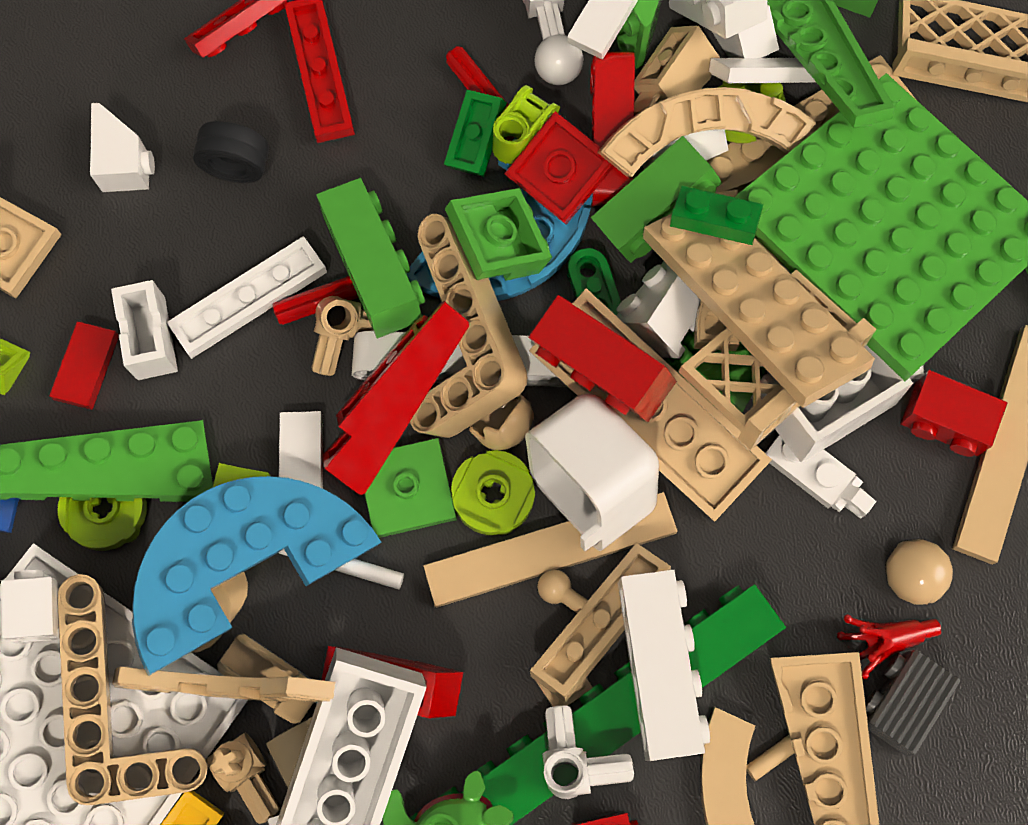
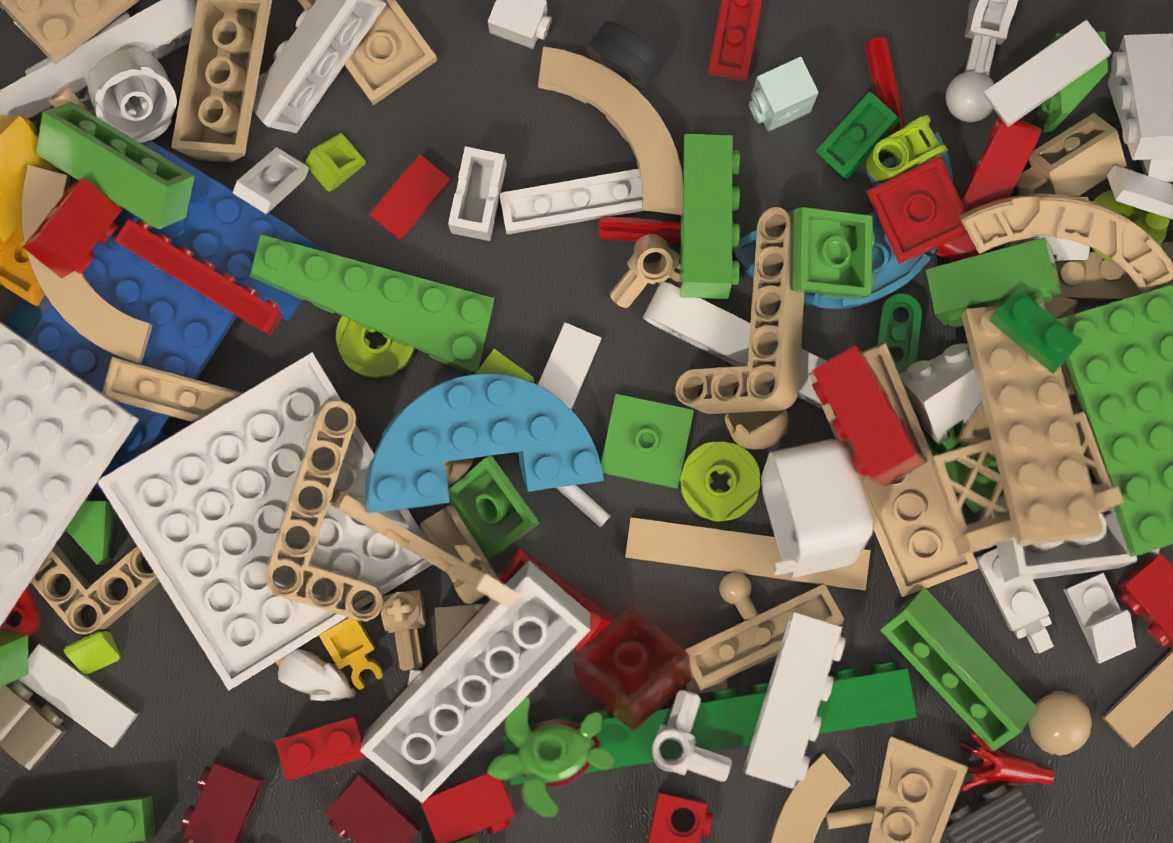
camera: 30 degrees right, 10 degrees up
(30, 607) = (296, 415): white brick -> none
(257, 202) = (629, 114): none -> tan tile
(283, 617) = (491, 507): none -> bright green slope
(391, 123) = (783, 94): none -> light aqua brick
(391, 396) = (669, 358): red wedge -> none
(489, 710) = (632, 668): none -> clear red brick
(803, 563) = (959, 669): none -> bright green brick
(907, 460) = (1100, 618): none -> white slope

